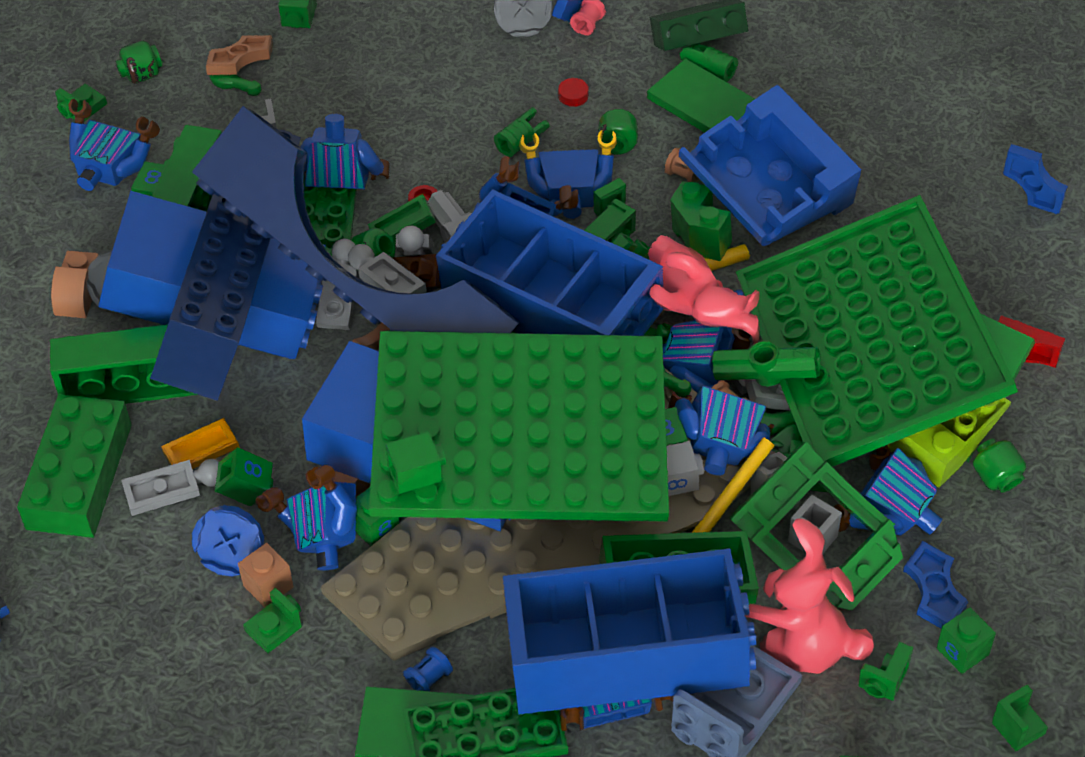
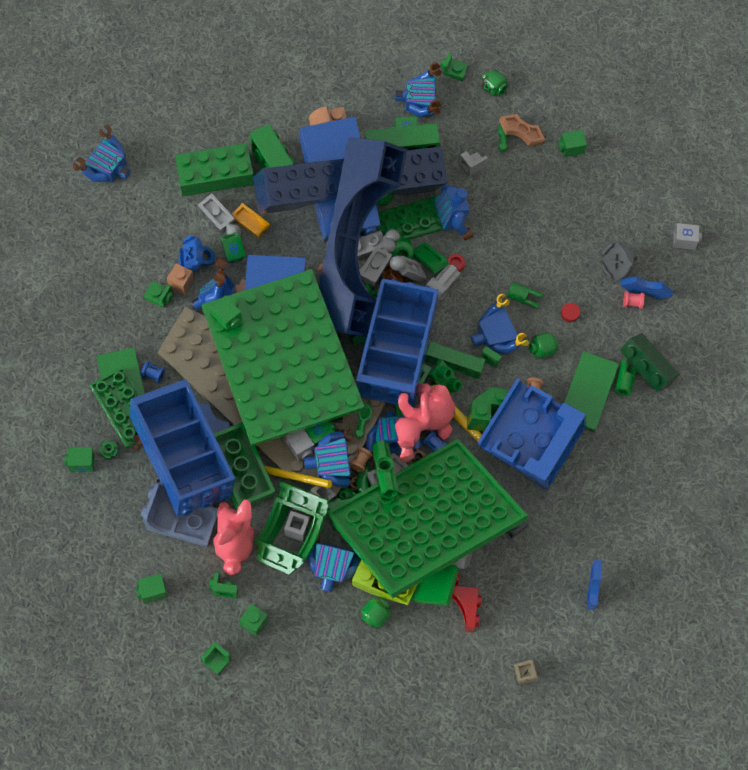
camera: 65 degrees right, 15 degrees up
(510, 173) = (458, 311): torso -> none
(931, 573) = (280, 603): blue tile -> none

